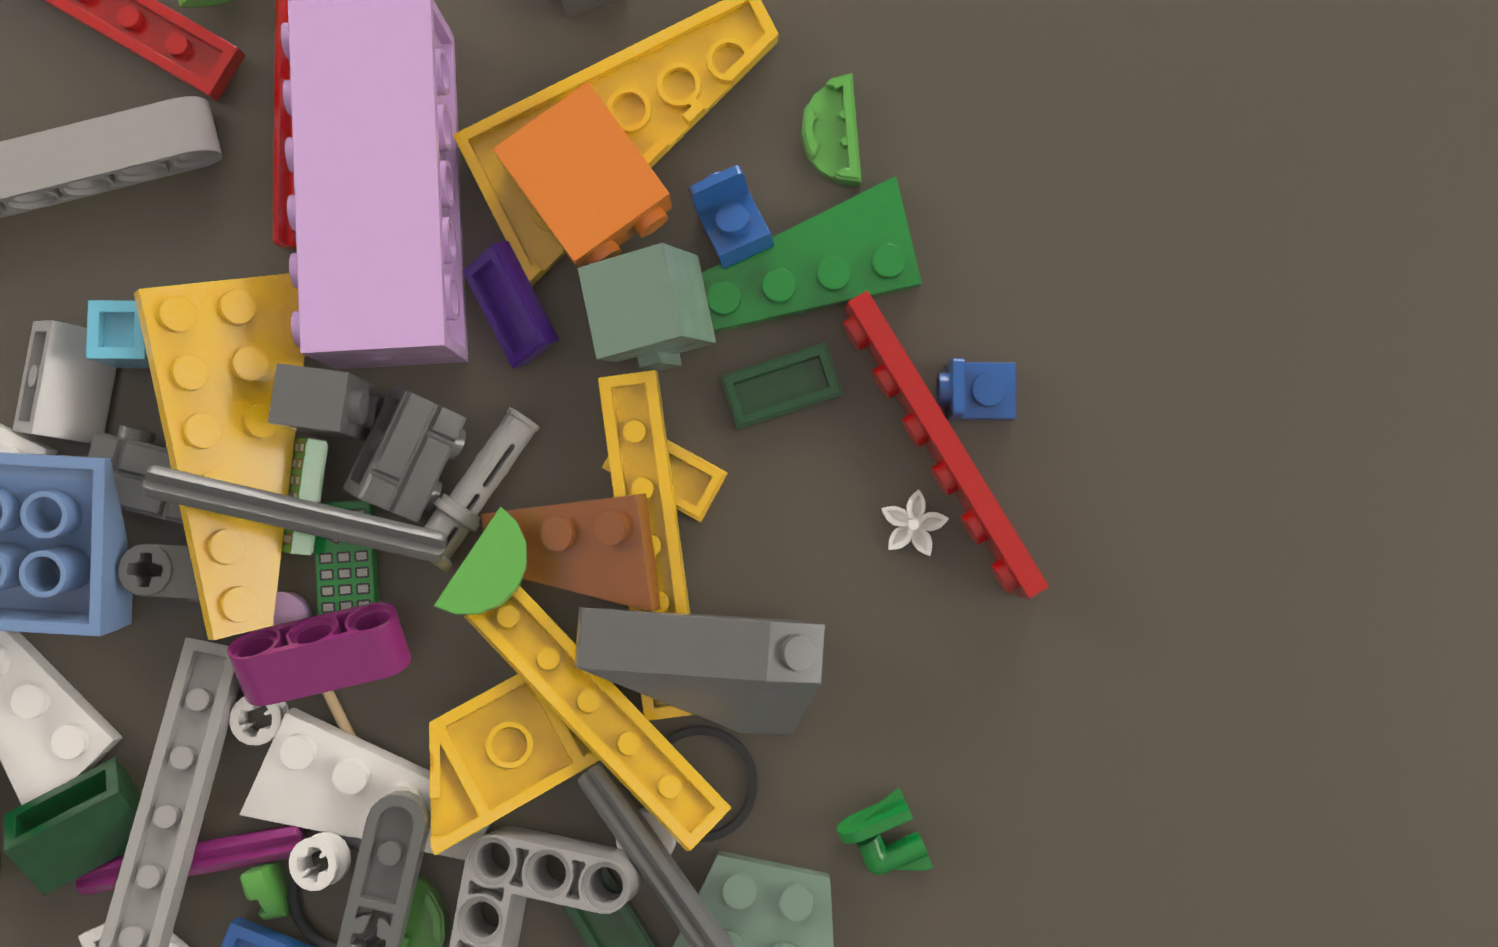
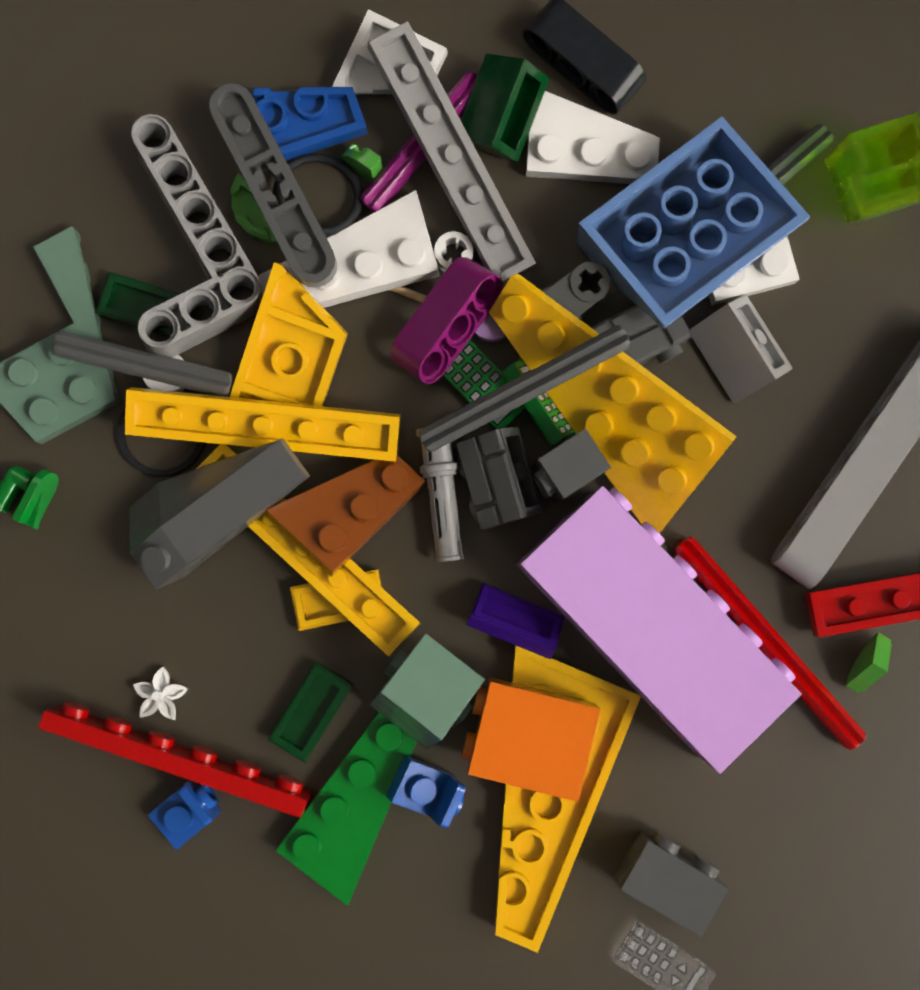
camera: 135 degrees right, 0 degrees up
(115, 334) = (729, 404): medium azure brick -> none
(307, 874) = (344, 189): white bush -> none
(490, 570) = (383, 452): bright green tile -> none
(831, 132) = (412, 899): bright green tile -> none

